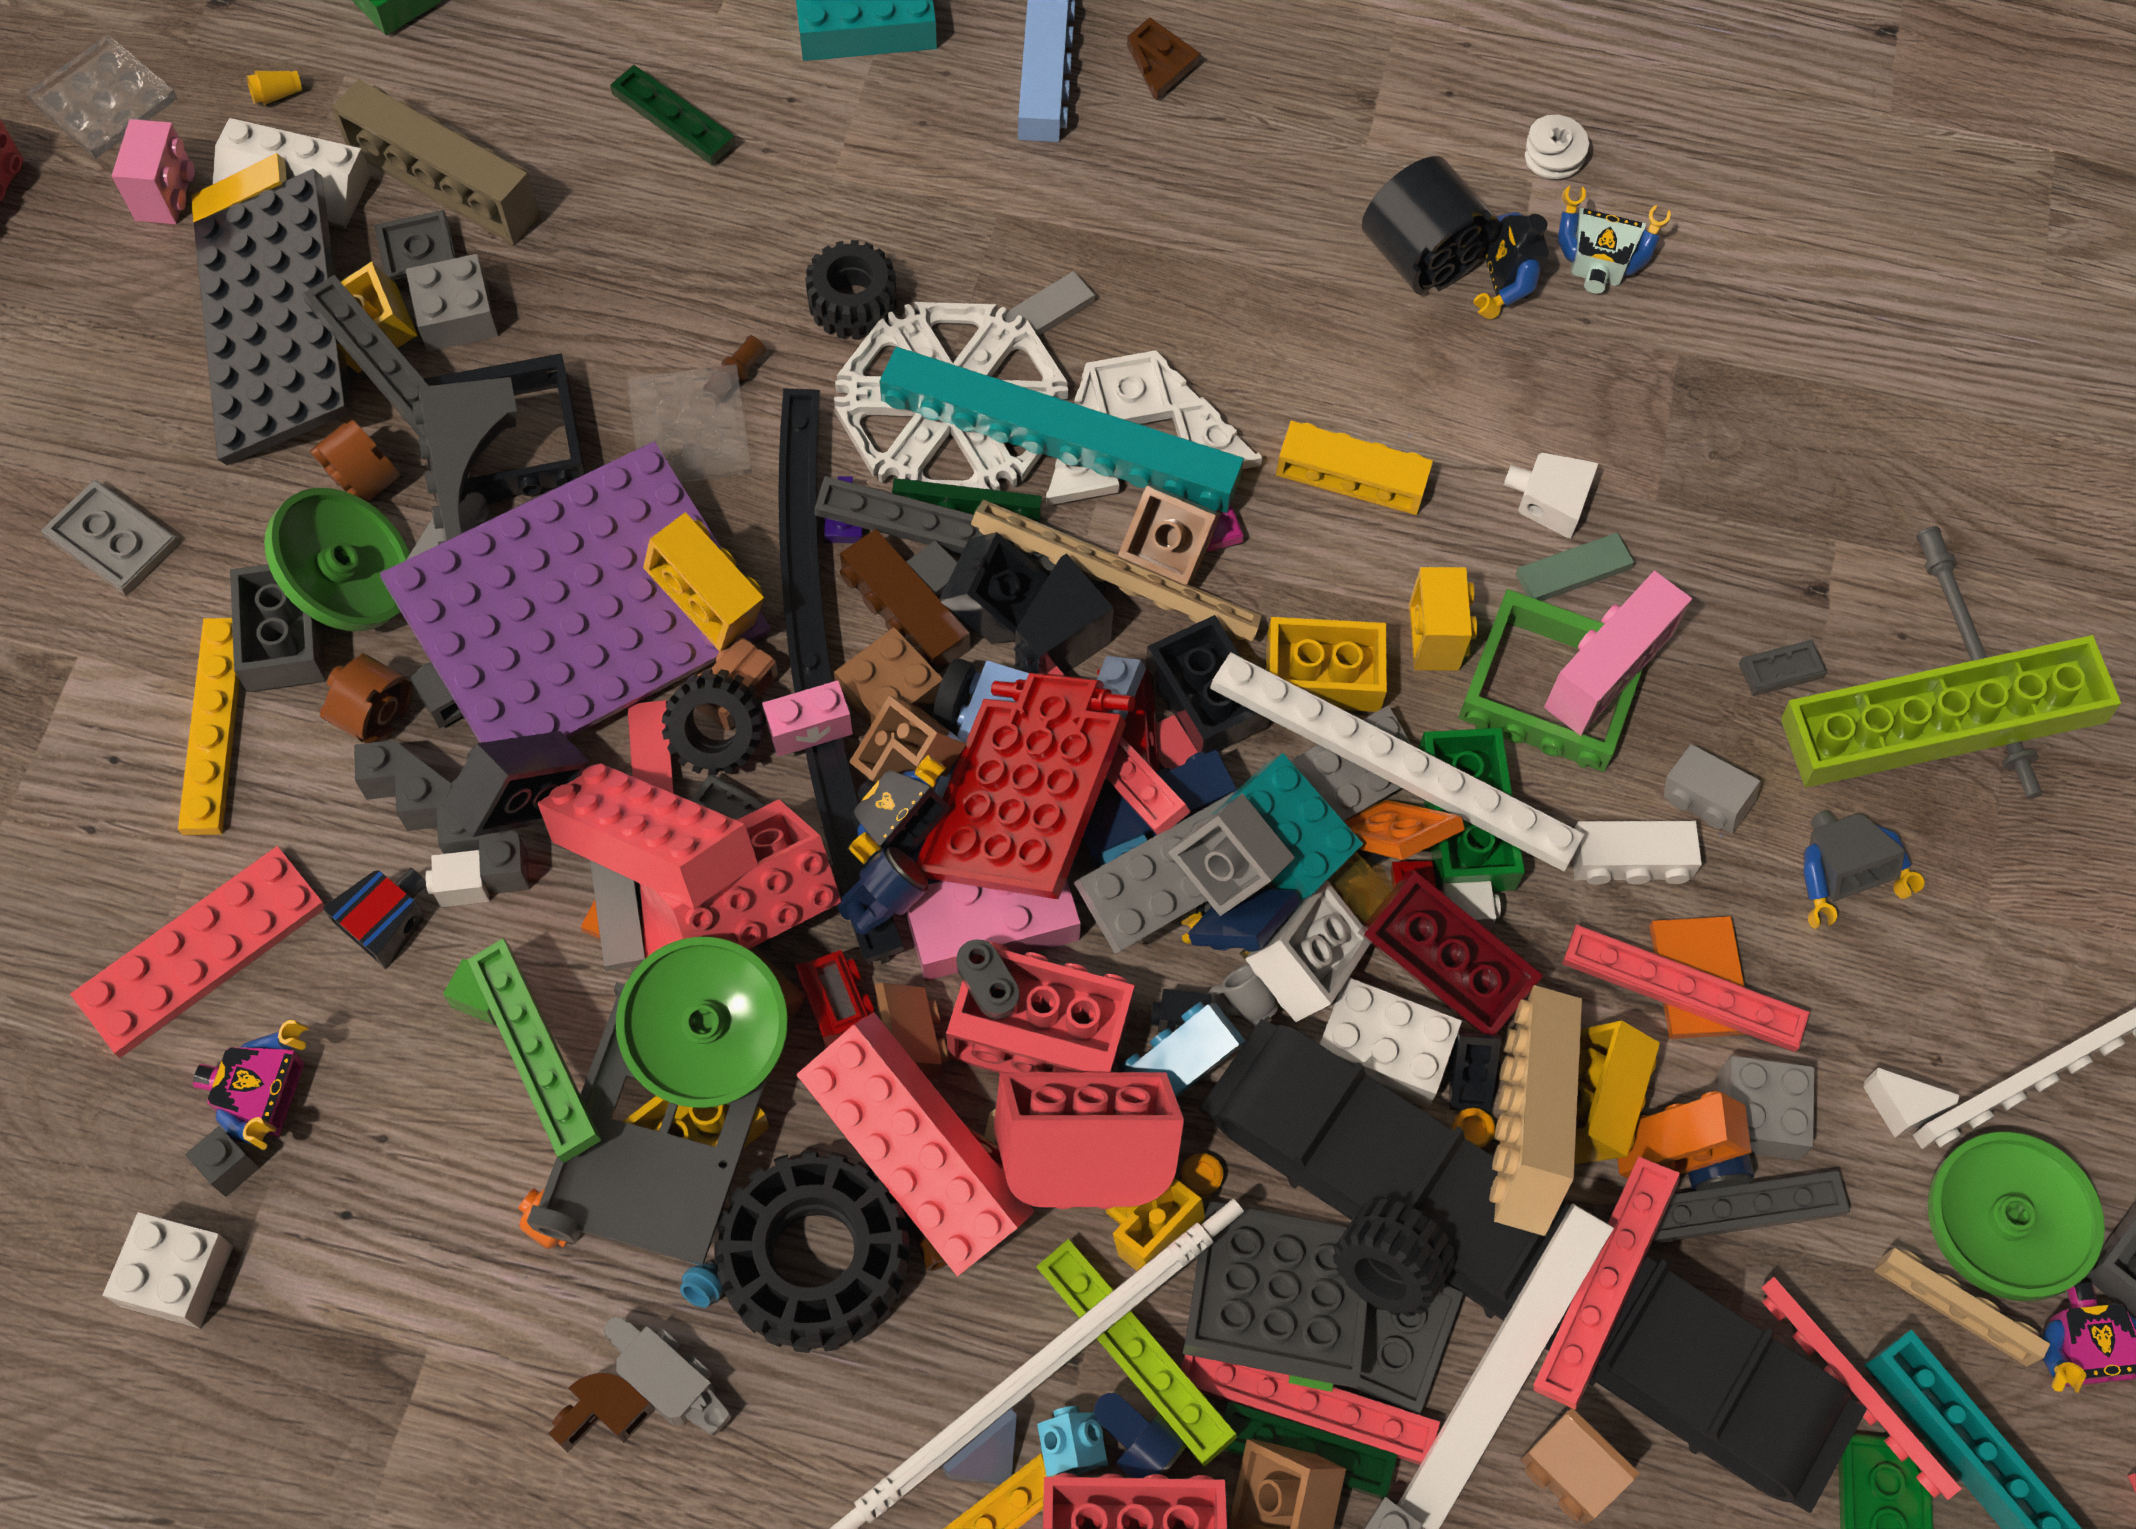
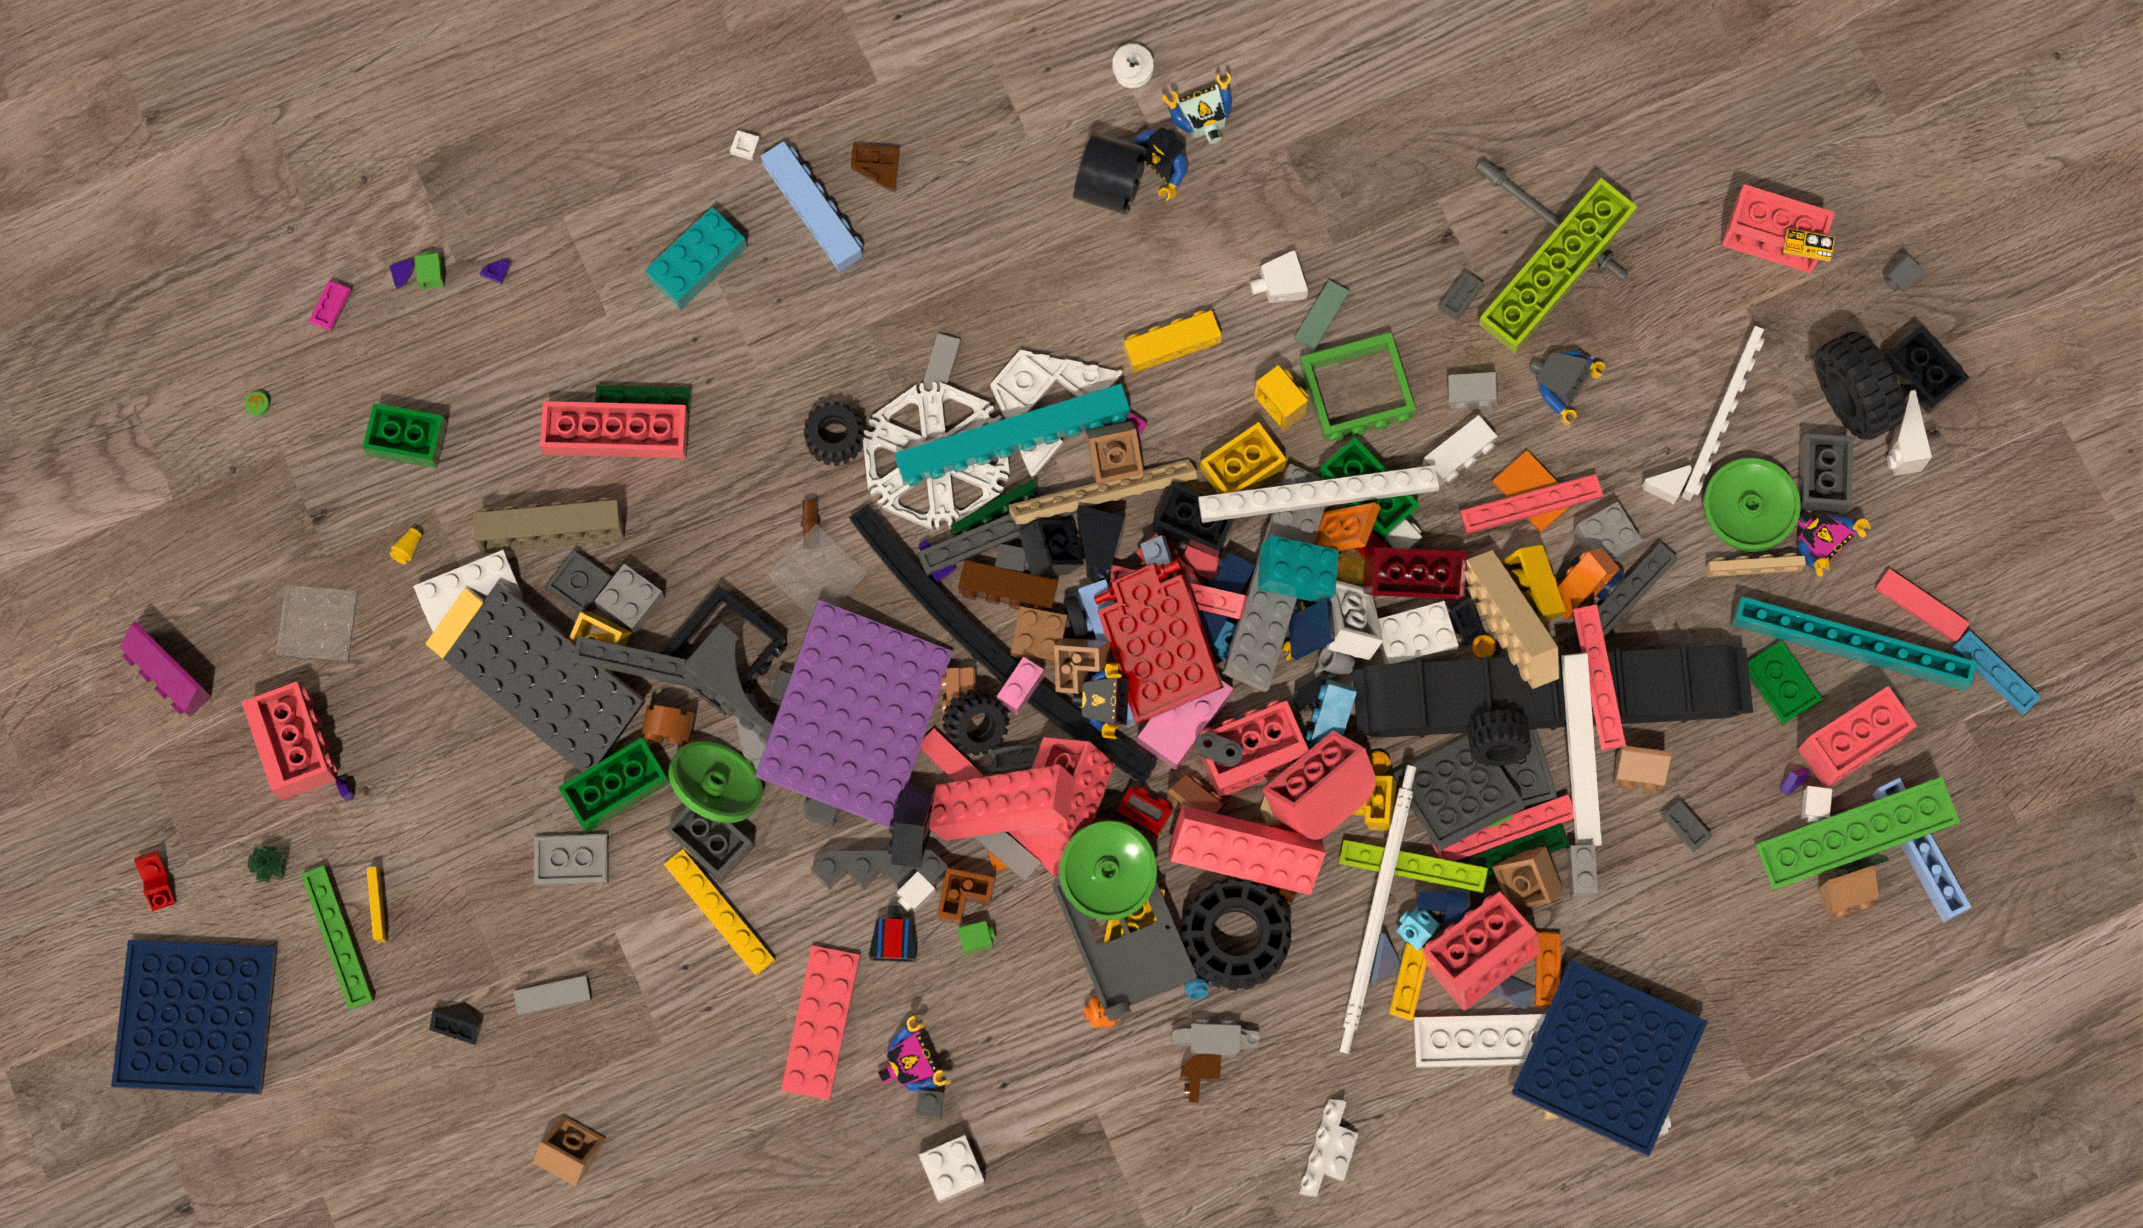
camera: 35 degrees left, 10 degrees up
(153, 171) = (397, 641): bright pink brick -> none
(224, 481) = (613, 785): none -> green brick
(366, 698) = (791, 841): dark orange brick -> none
(511, 913) = (962, 888): none -> dark orange brick
(534, 1051) = (1037, 942): bright green plate -> none
(608, 118) = (614, 429): none -> coral brick
(703, 580) = (914, 656): yellow brick -> none
(886, 887) = (1133, 736): dark blue piece -> none
(1231, 855) = (1287, 605): light grey brick -> none
(1616, 652) = (1384, 357): bright pink brick -> none
(1901, 1439) = (1725, 637): coral plate -> none

